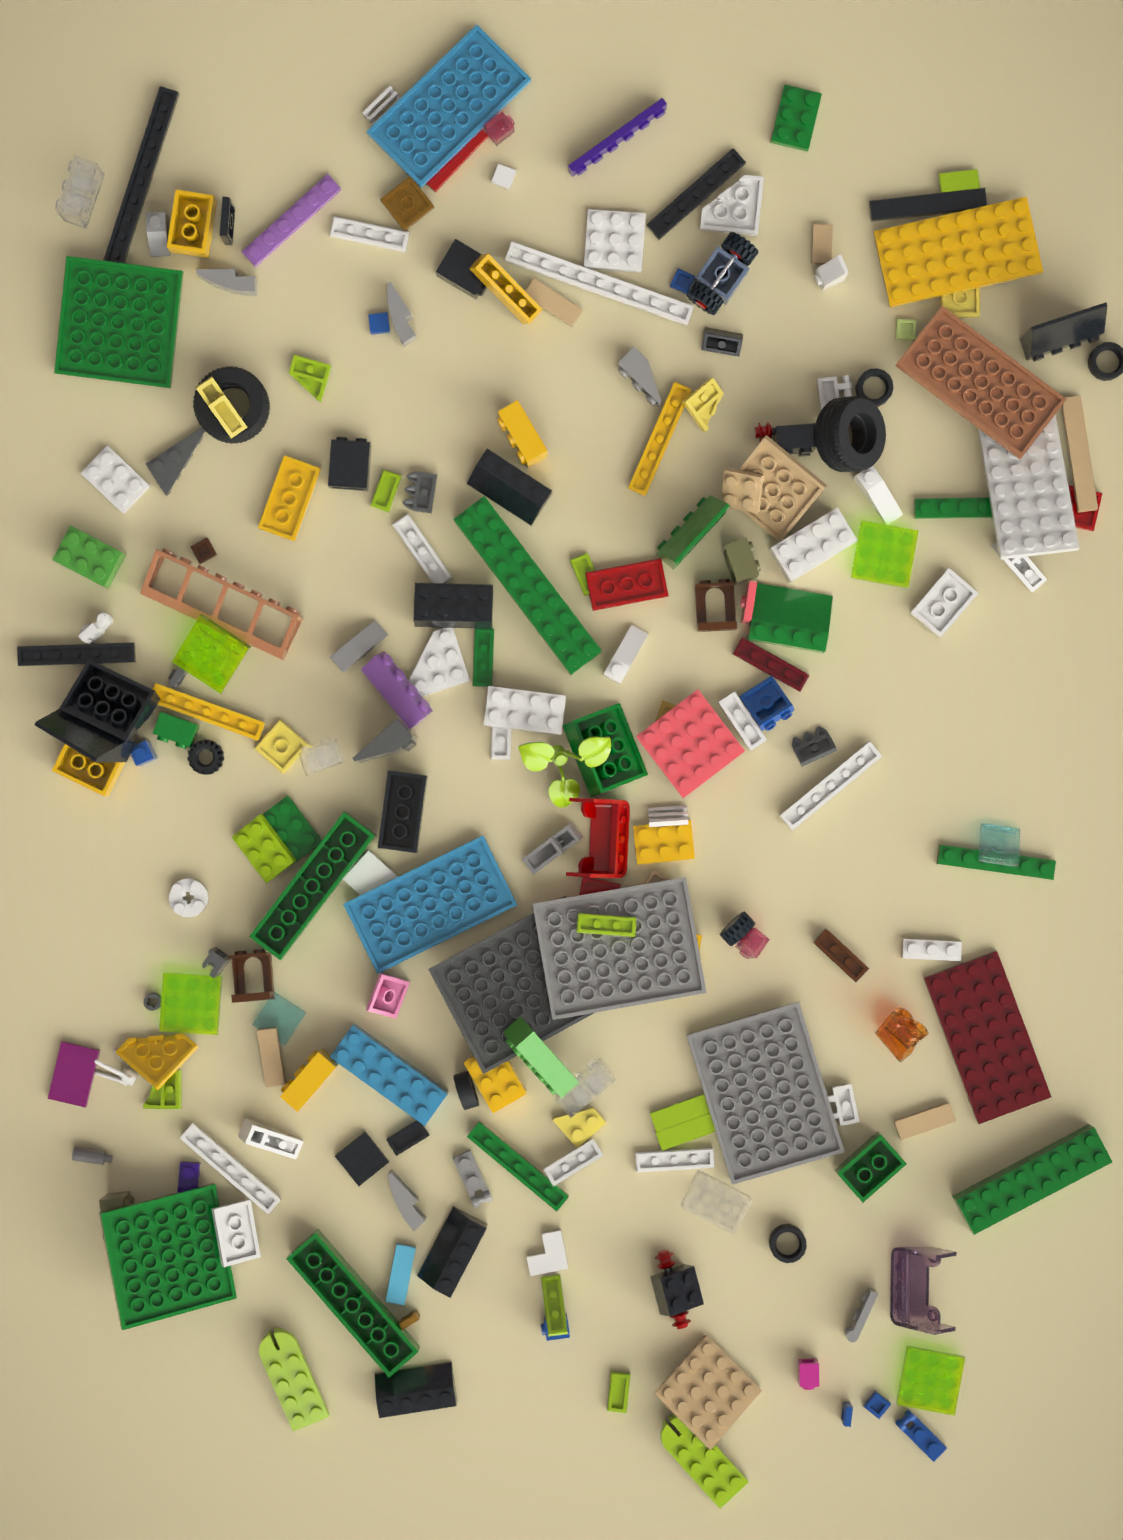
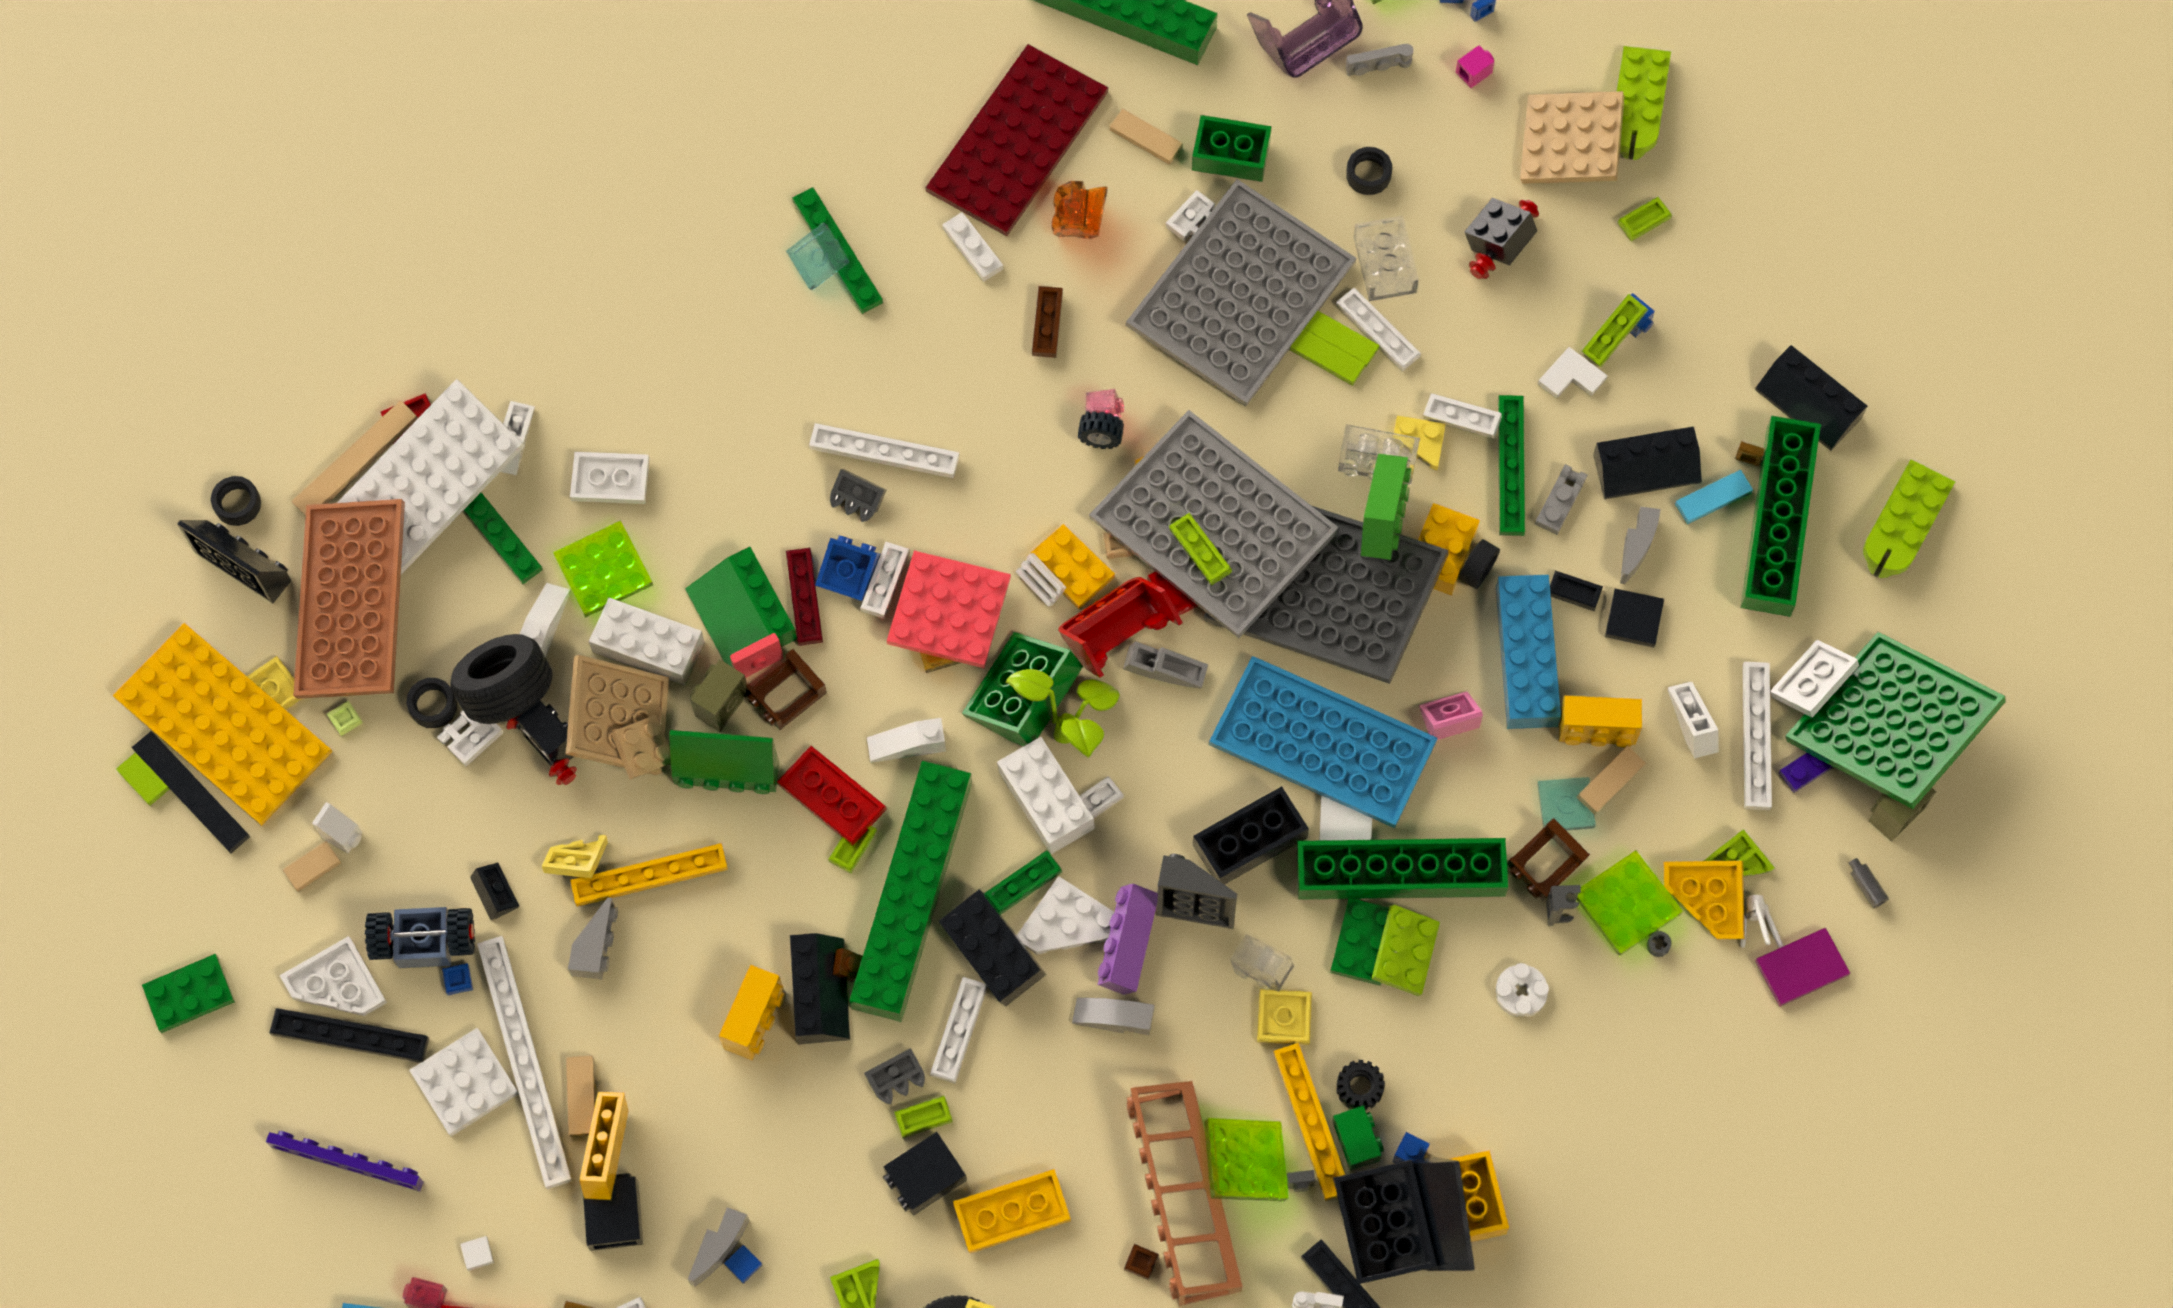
camera: 125 degrees left, 20 degrees down
(511, 514) = (846, 964): none -> reddish brown plate

